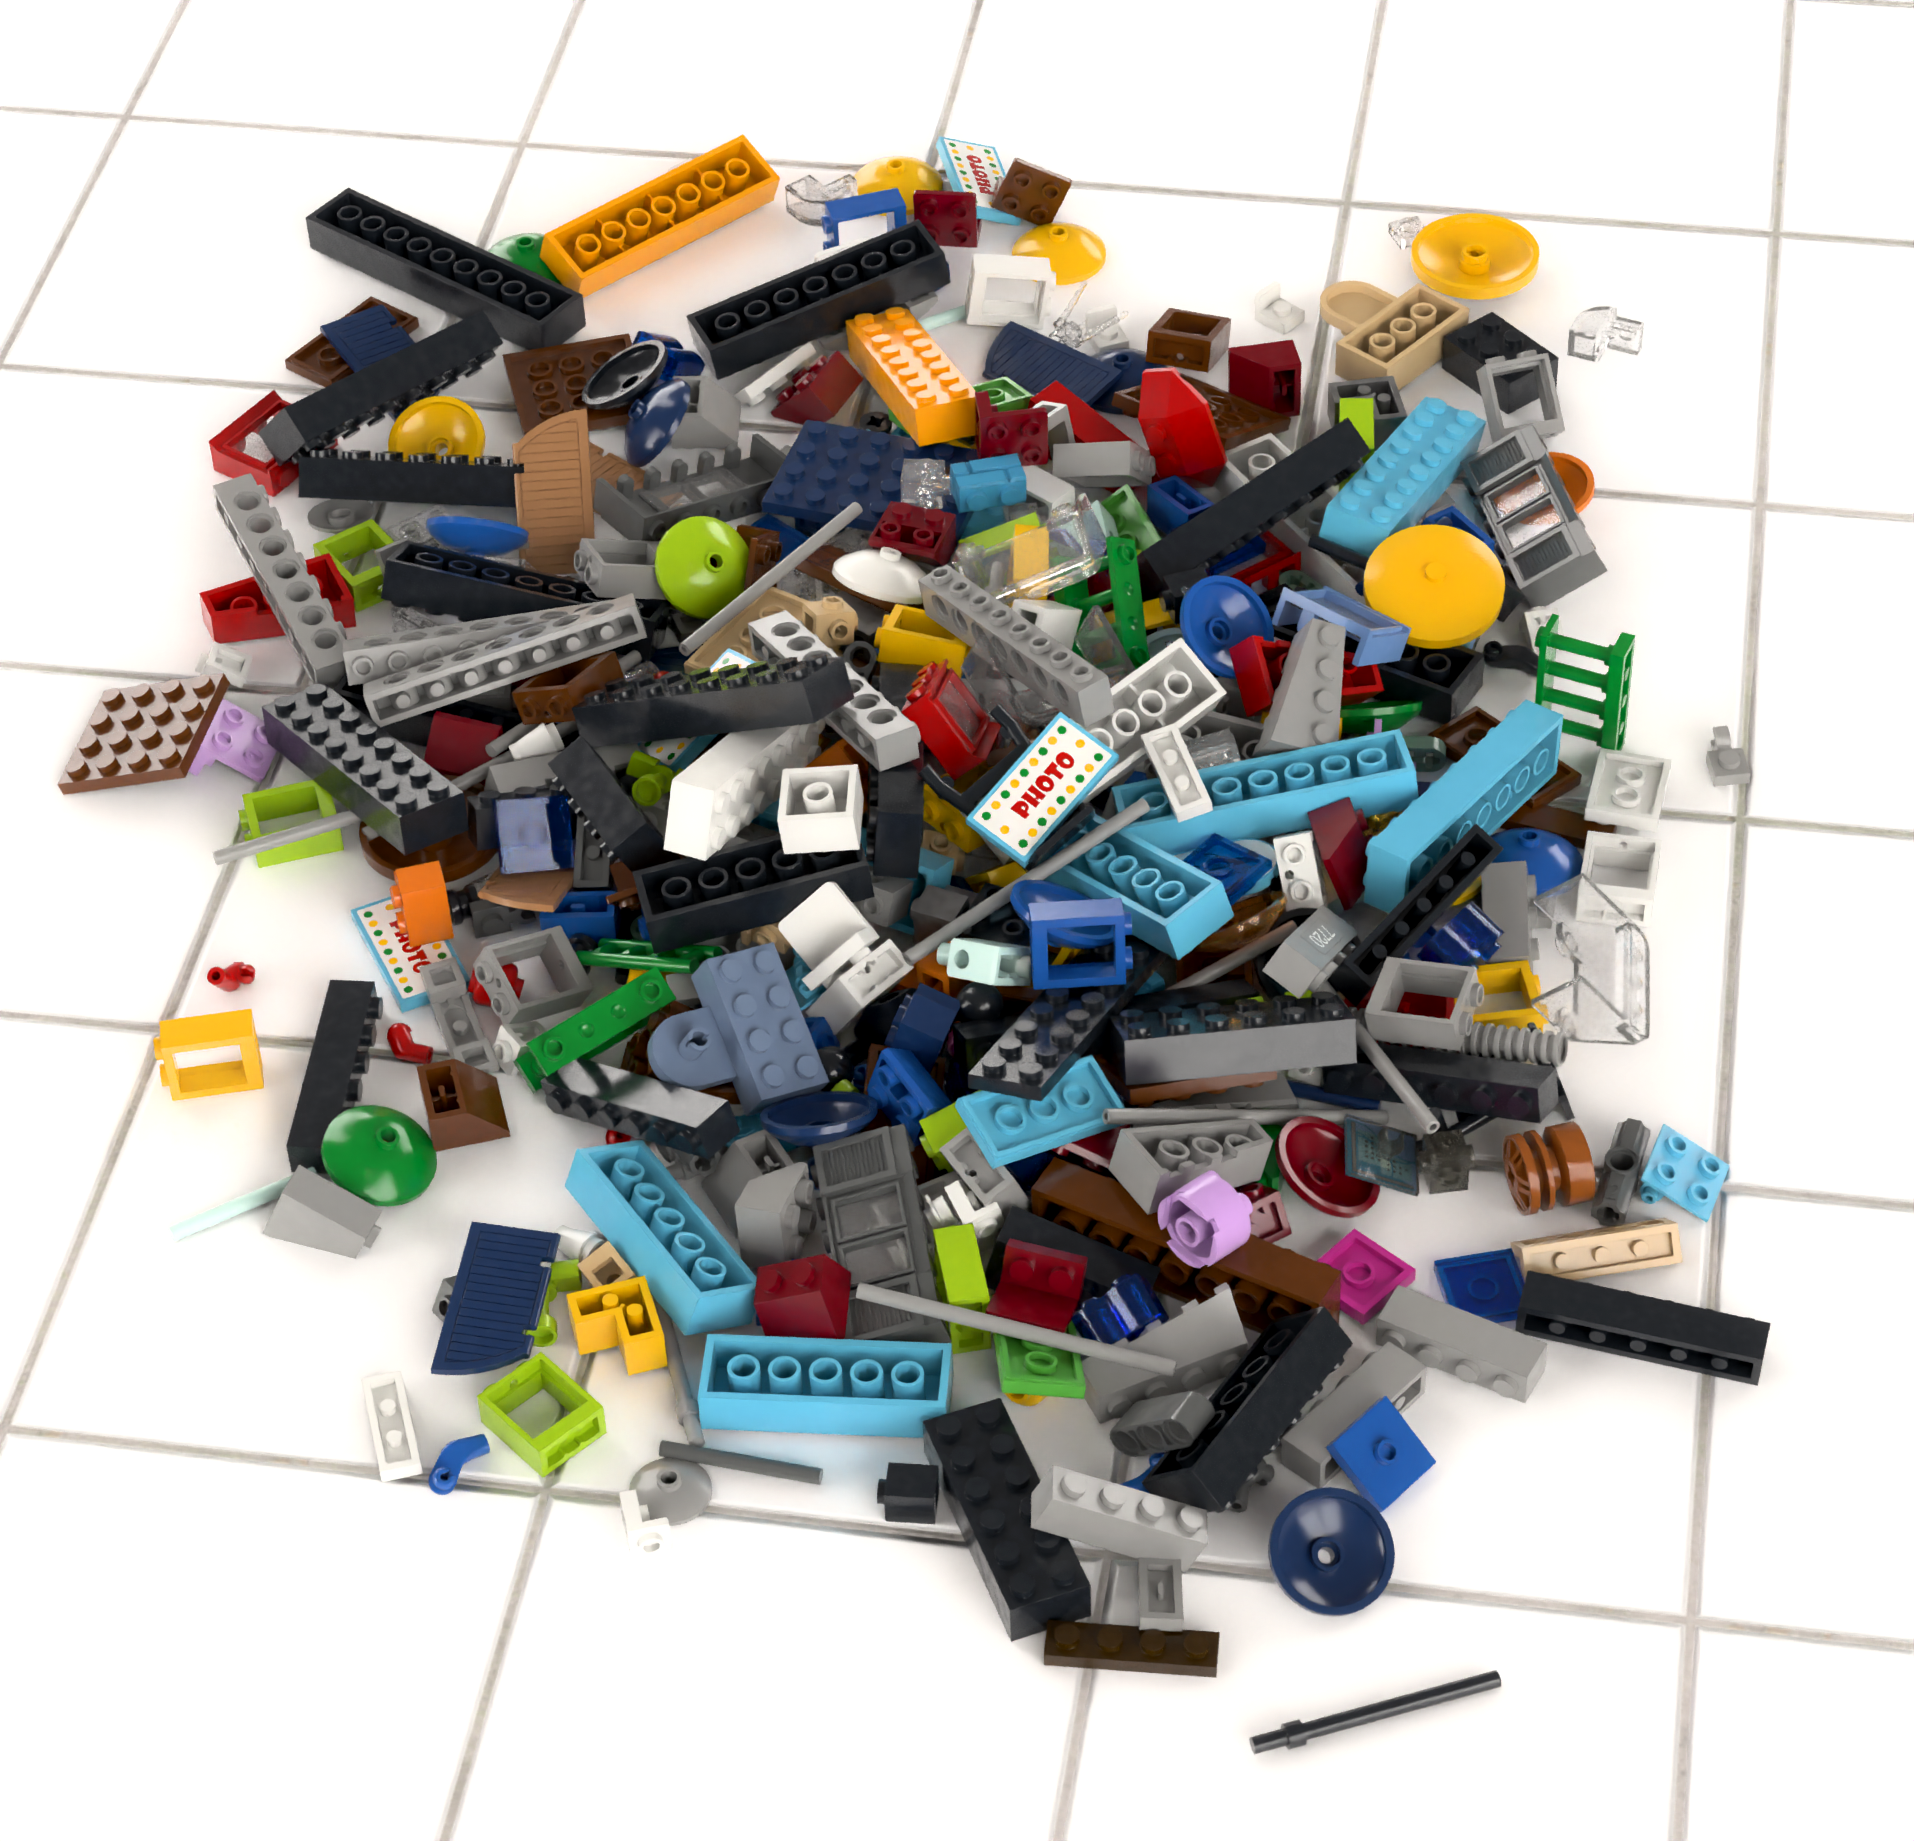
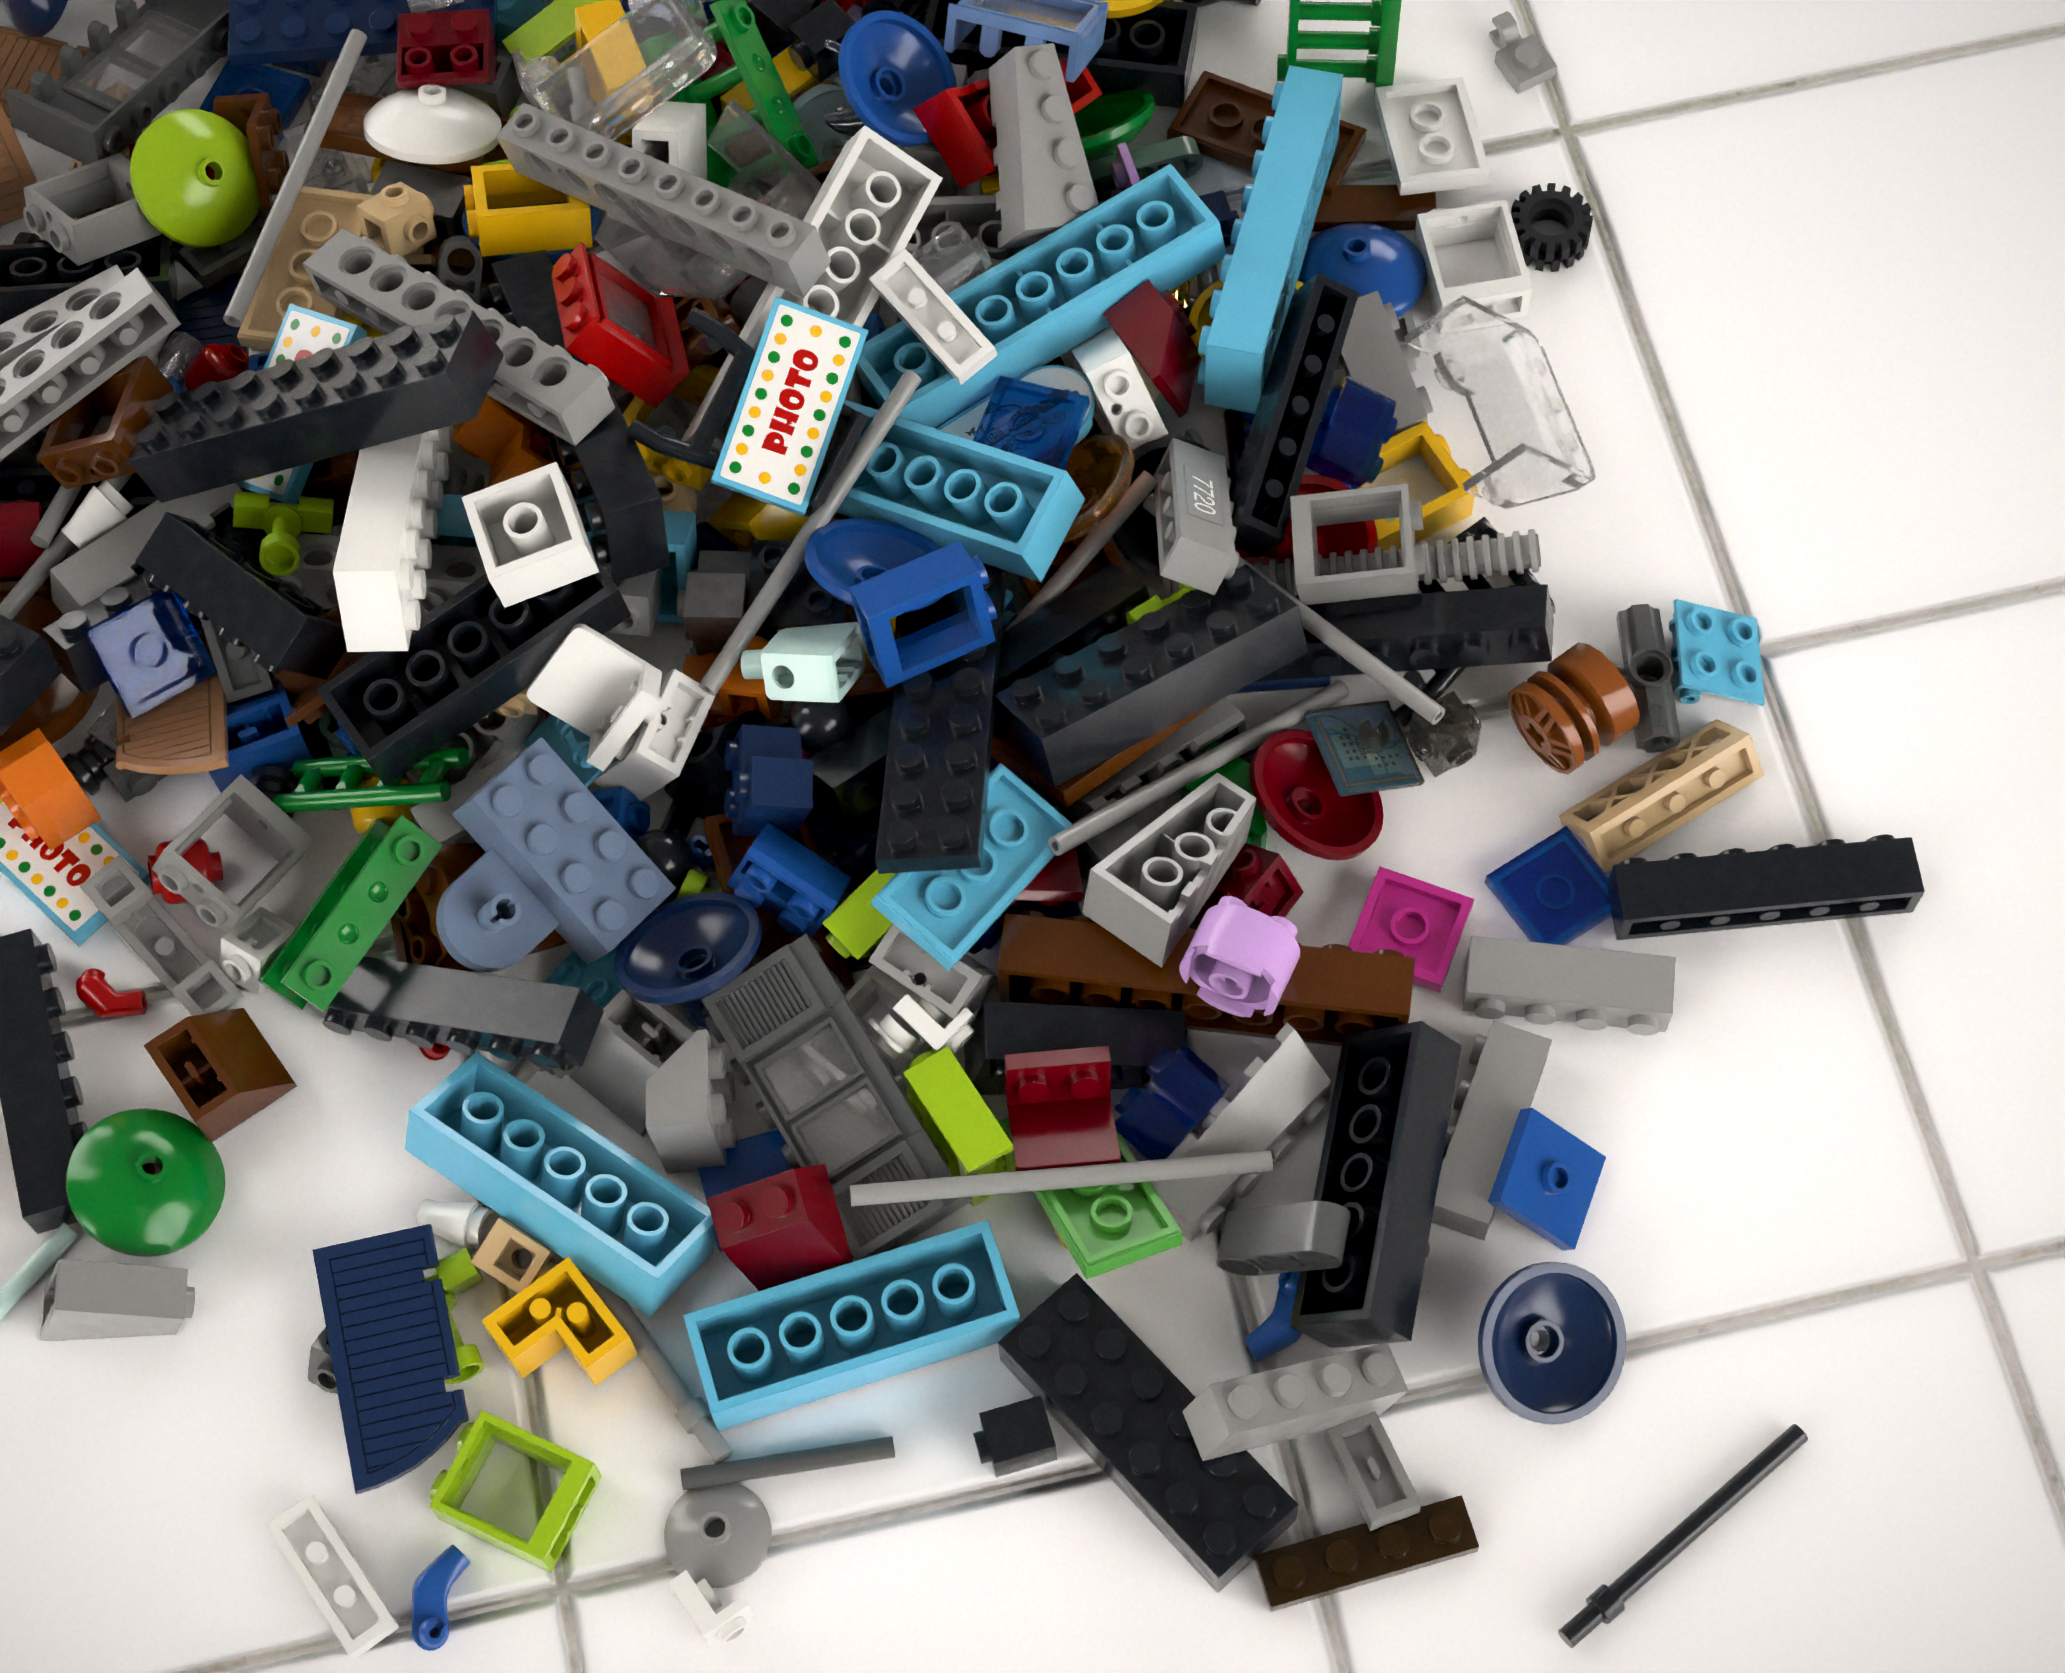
camera: 20 degrees left, 20 degrees up
(1693, 858) = (1557, 207): none -> black tyre

